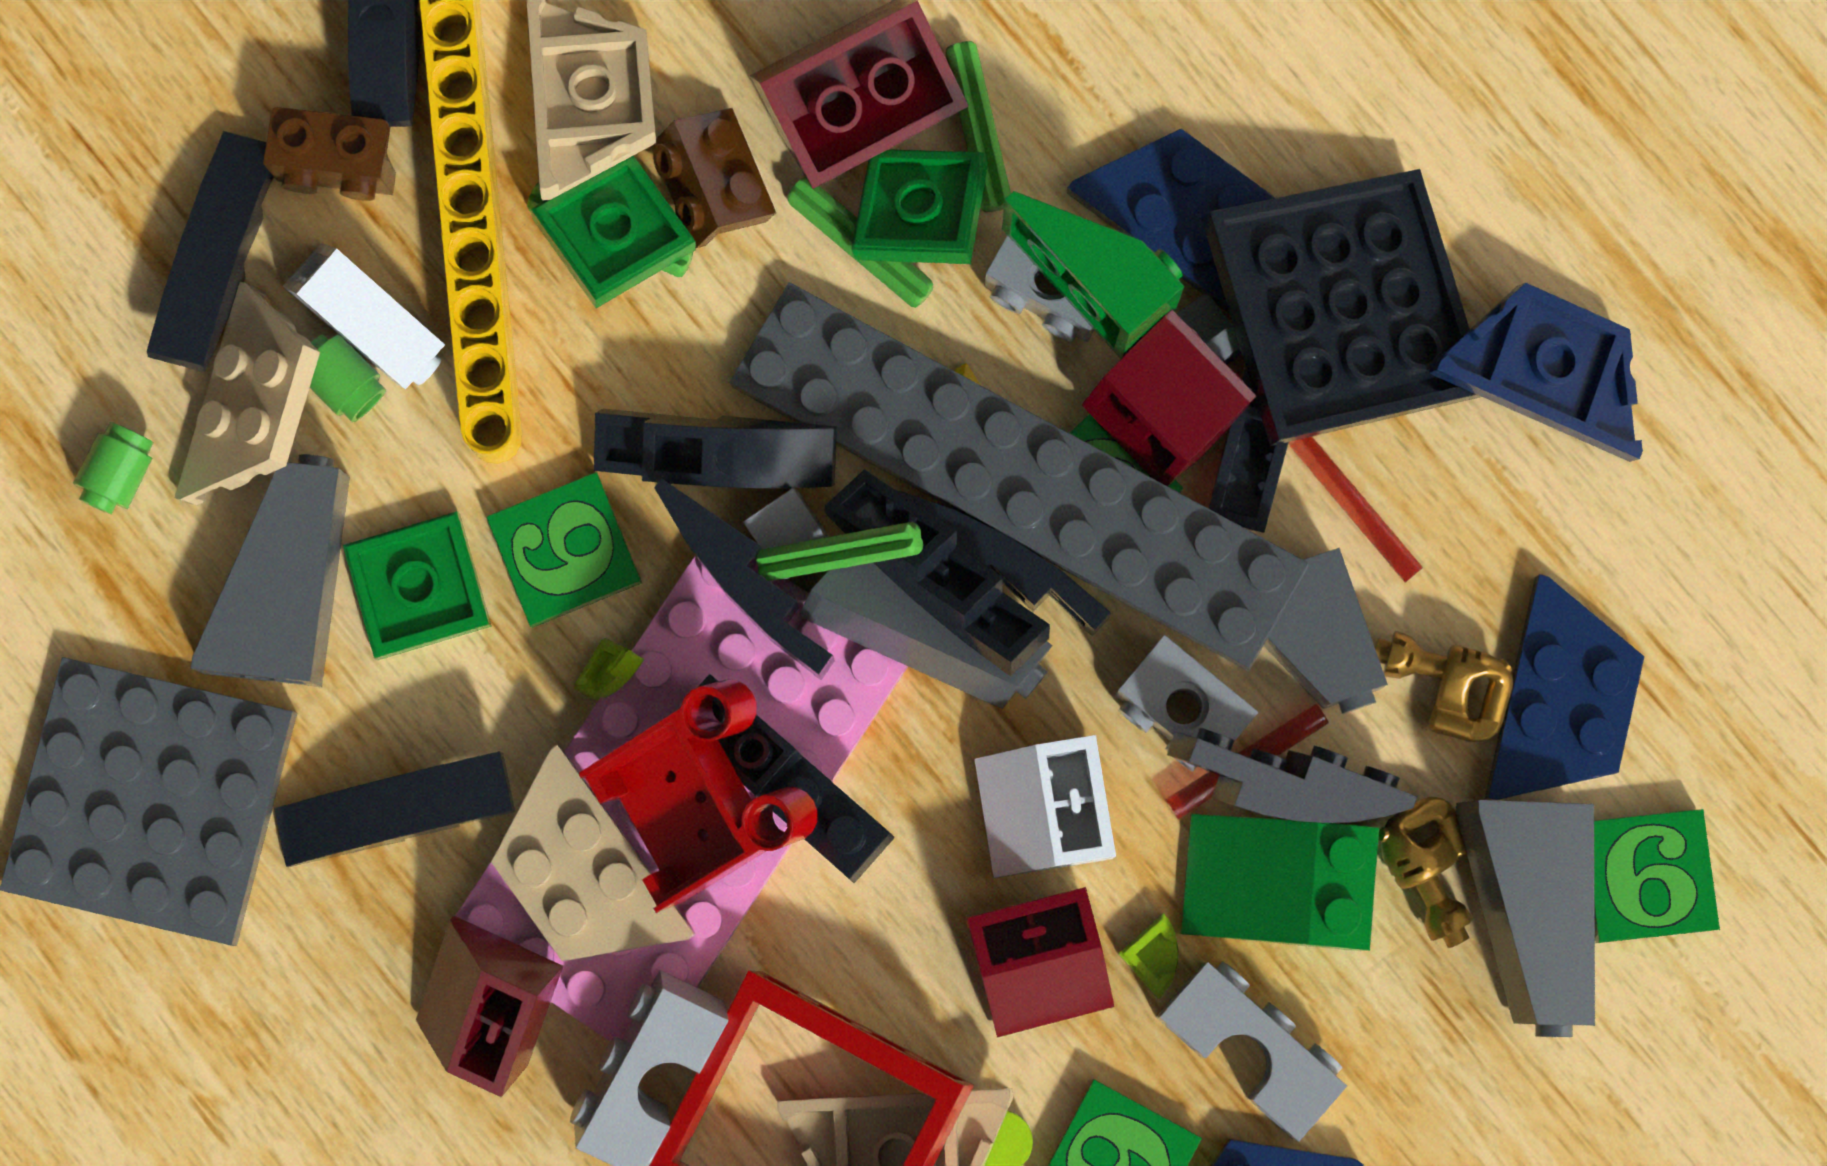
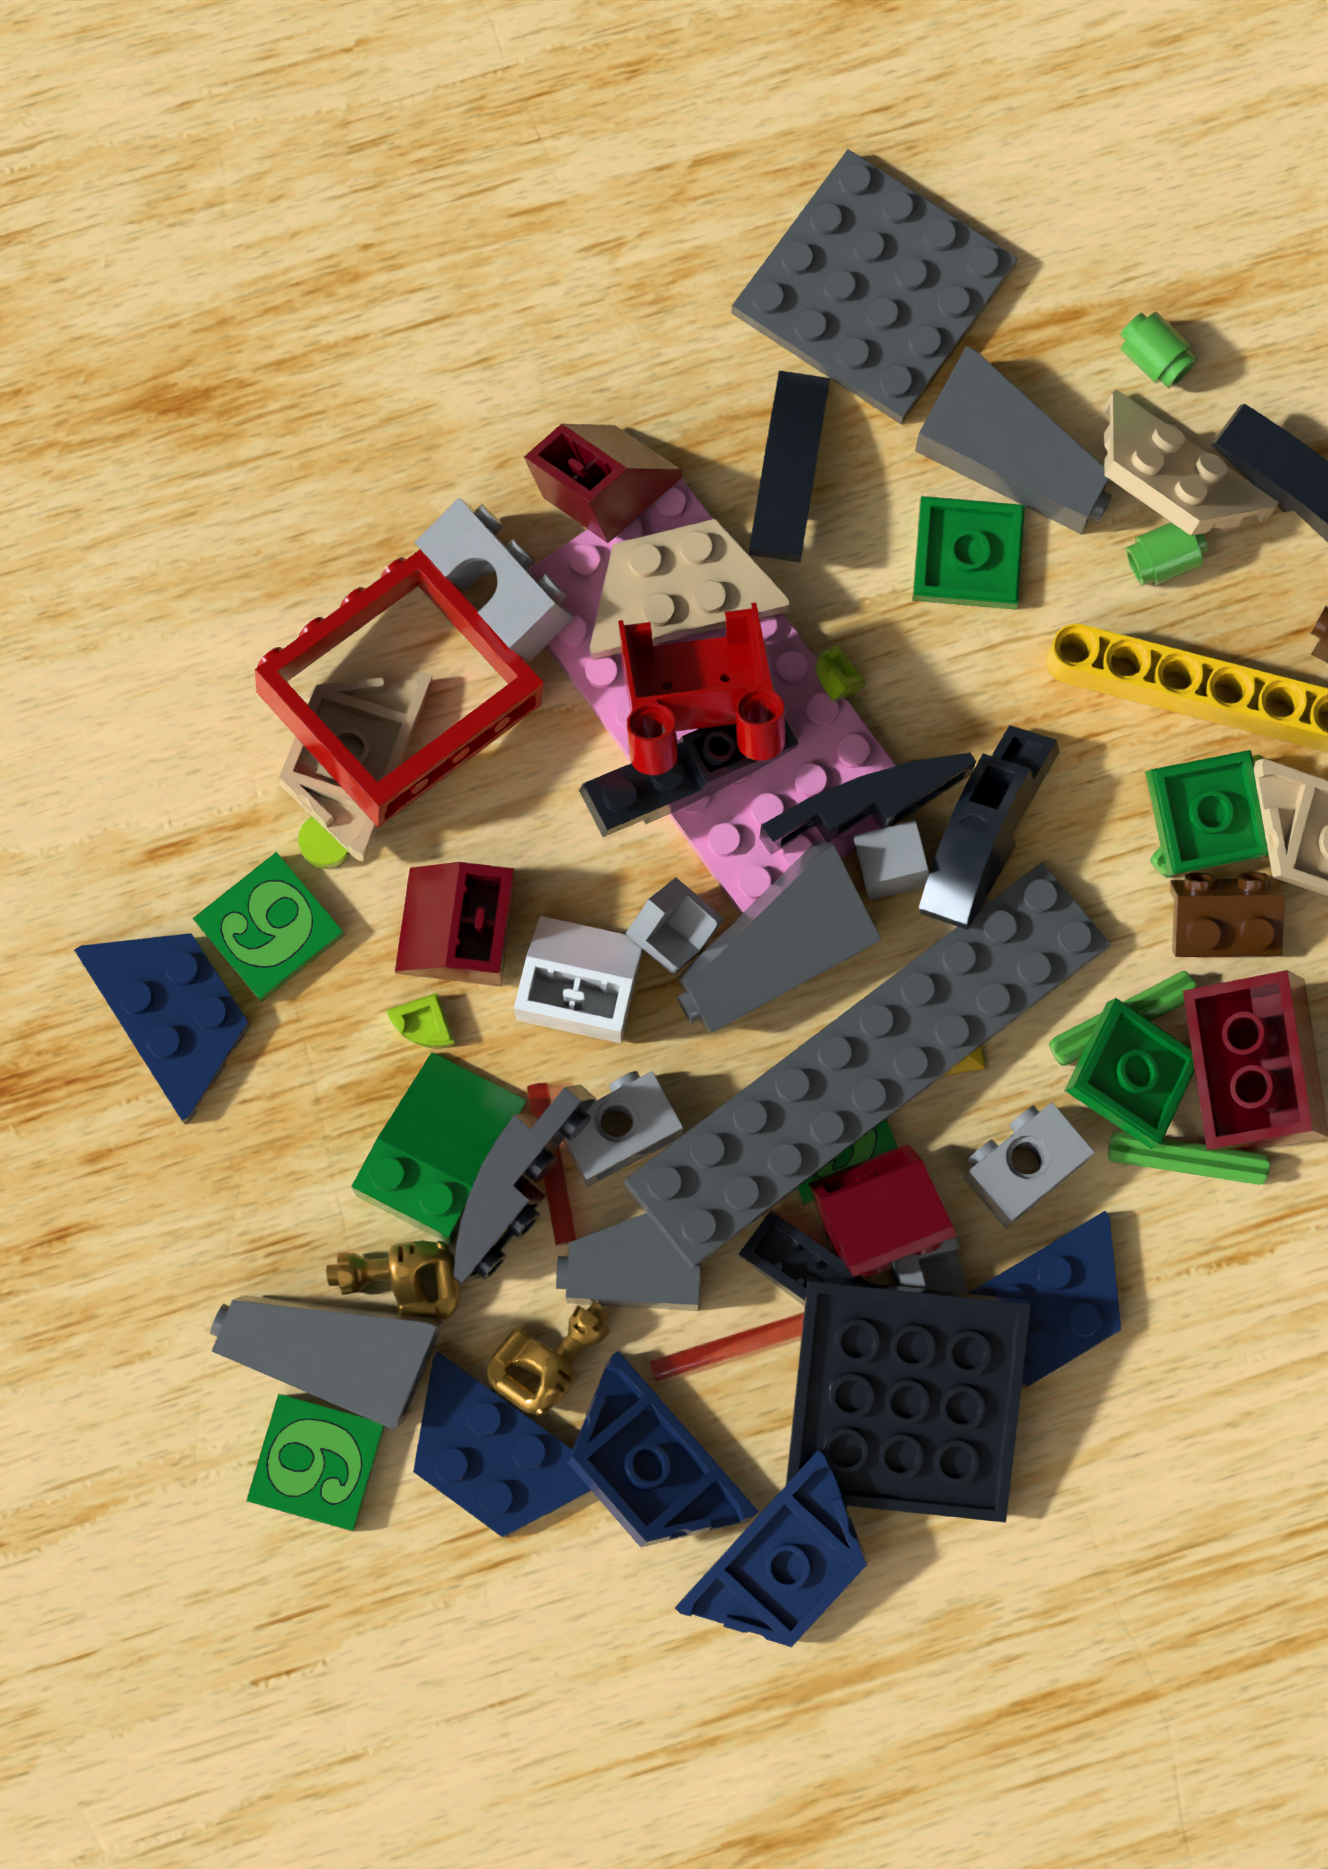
camera: 105 degrees right, 5 degrees down
(365, 316) = (1210, 586): white slope -> none
(564, 550) = (952, 678): green tile -> none
(840, 551) = (855, 878): bright green axle -> none
(942, 576) = (809, 955): black slope -> none
(951, 731) = (674, 926): none -> light grey panel
(1022, 570) = (814, 1008): black slope -> none
(1099, 271) = (998, 1188): green slope -> none
(1296, 1080) = (357, 1054): light grey arch -> none
(1512, 538) = (650, 1465): none -> dark blue wing

